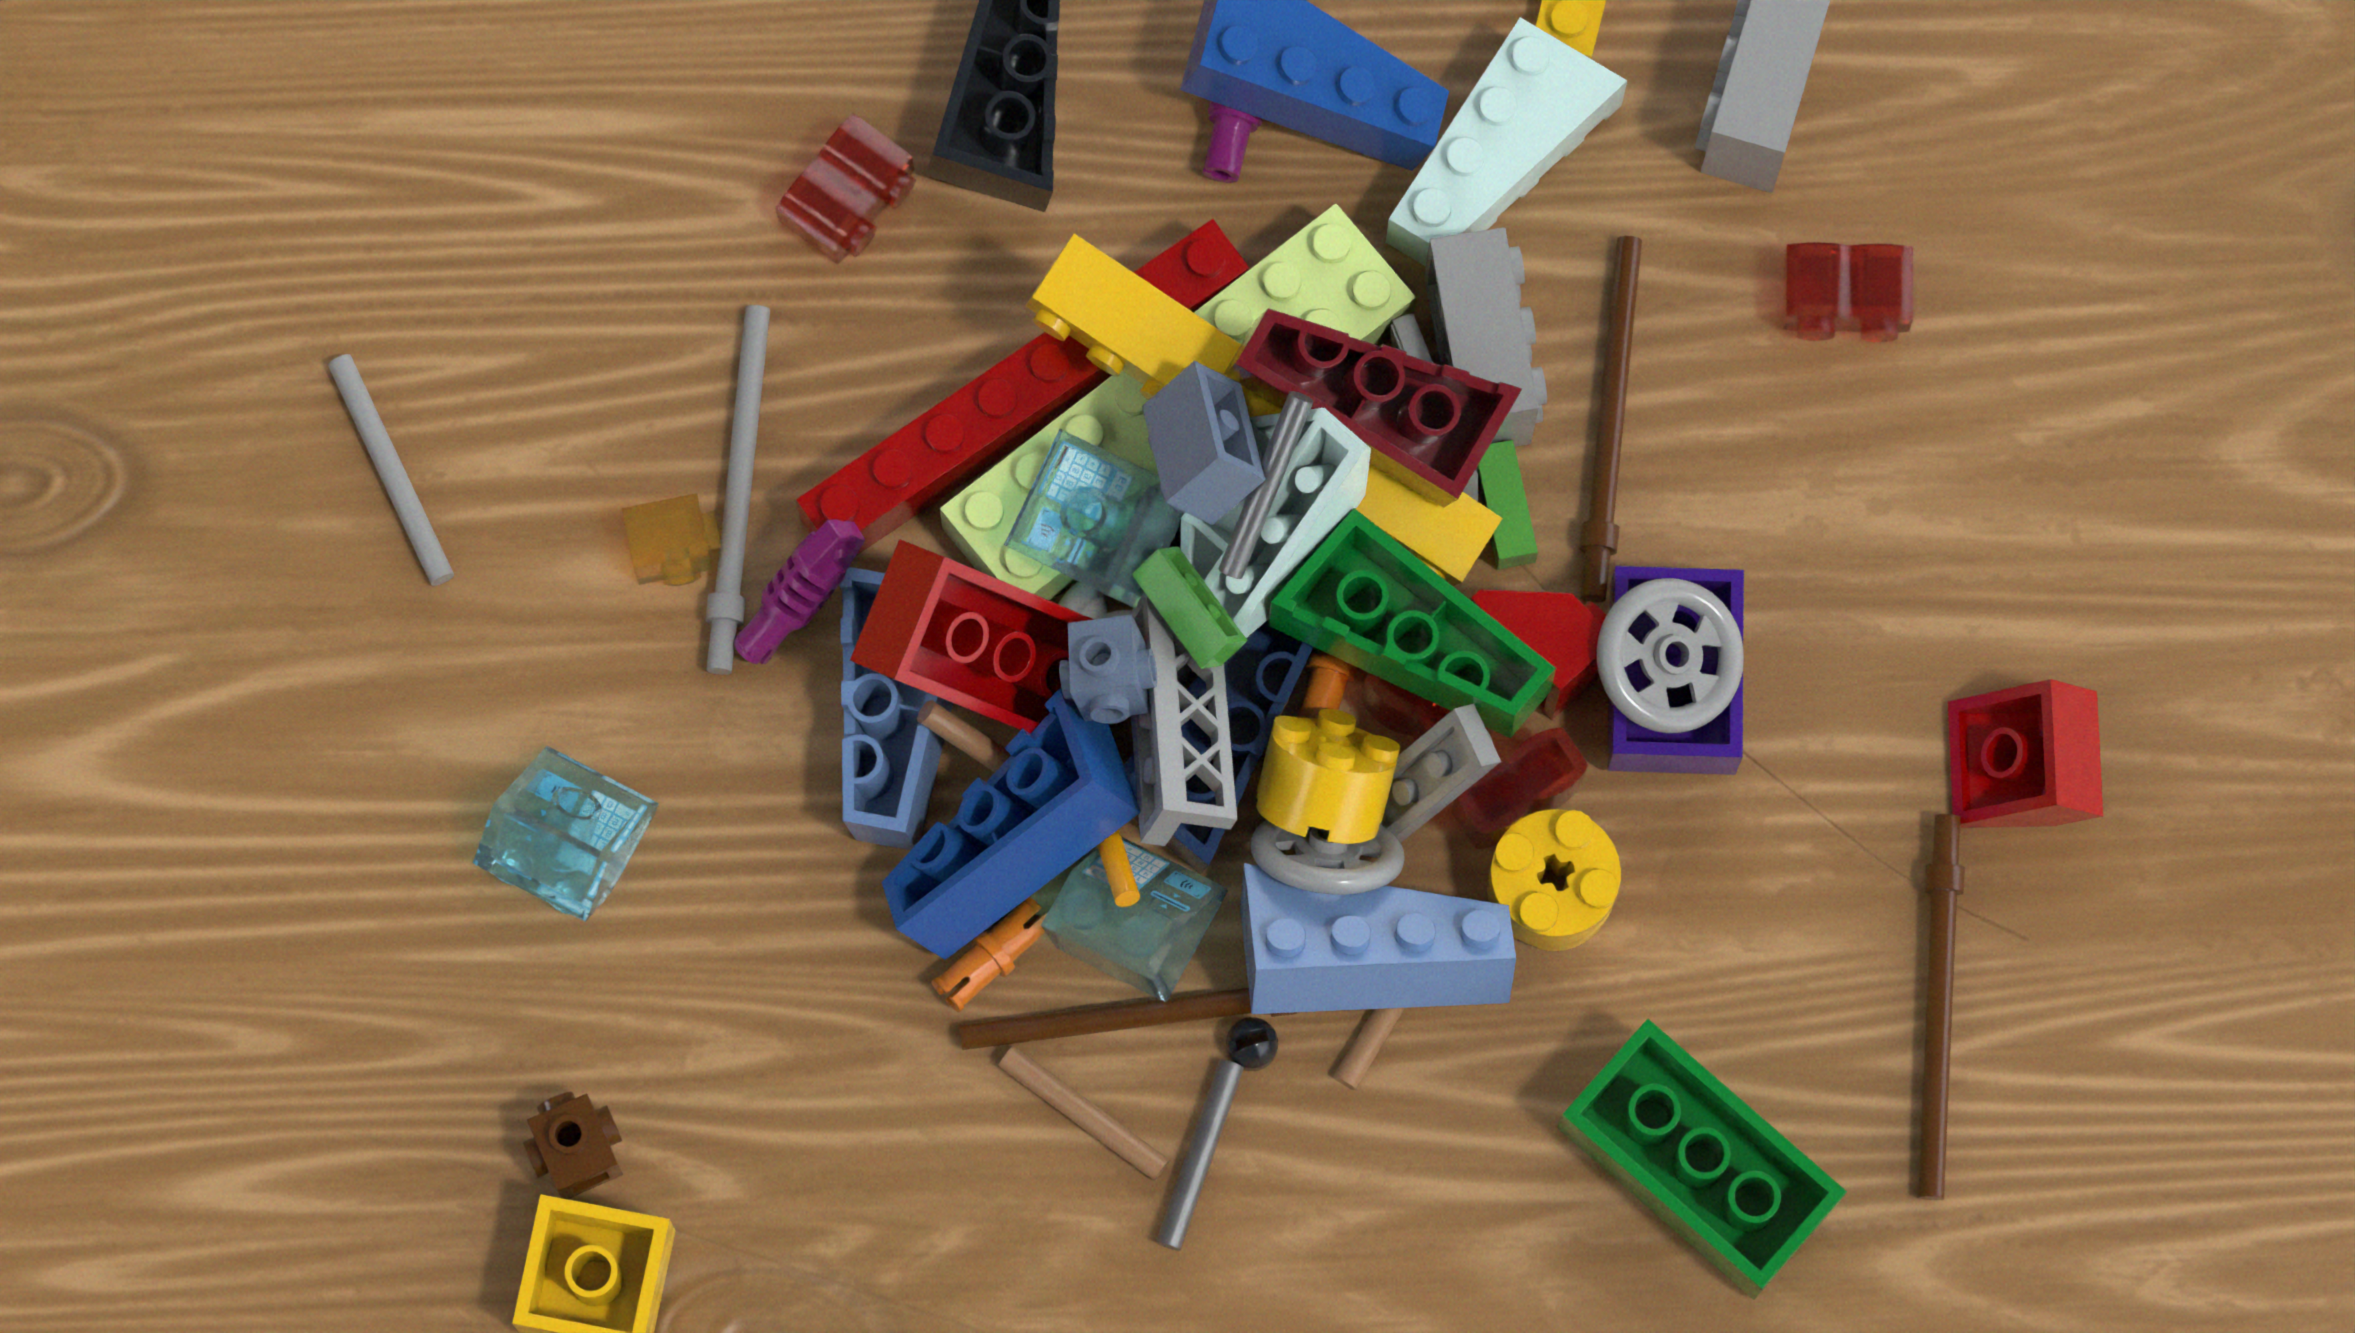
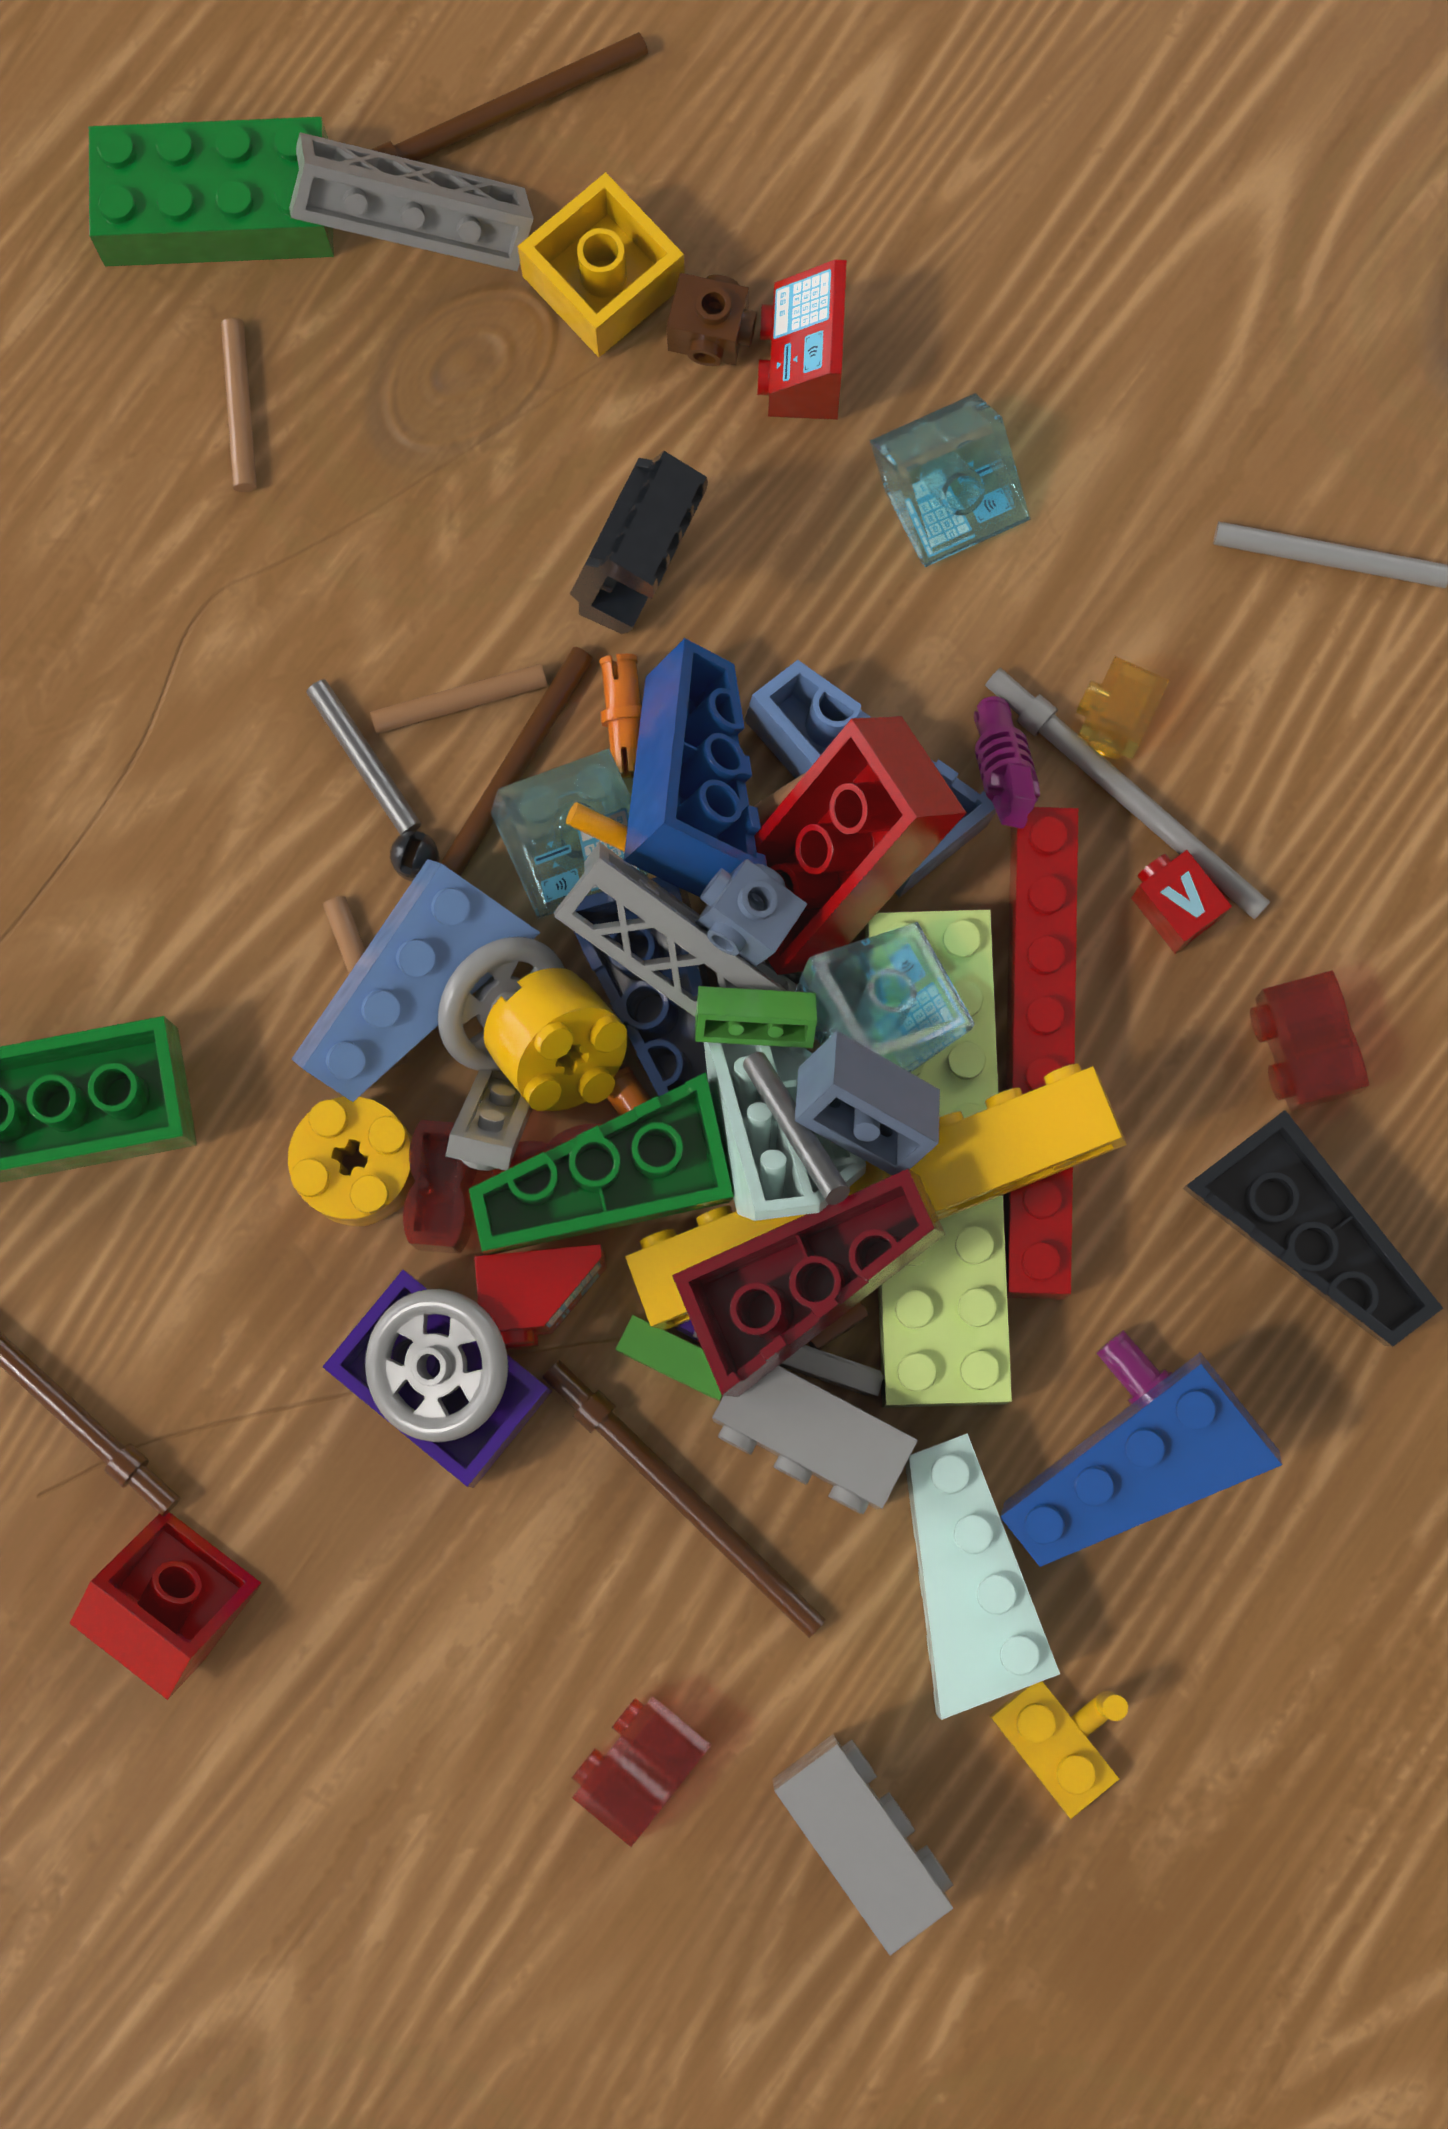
camera: 130 degrees right, 5 degrees up
(536, 1039) = (805, 343): none -> red slope
(804, 375) = (1179, 899): none -> red brick
(846, 1016) = (638, 541): none -> black plate

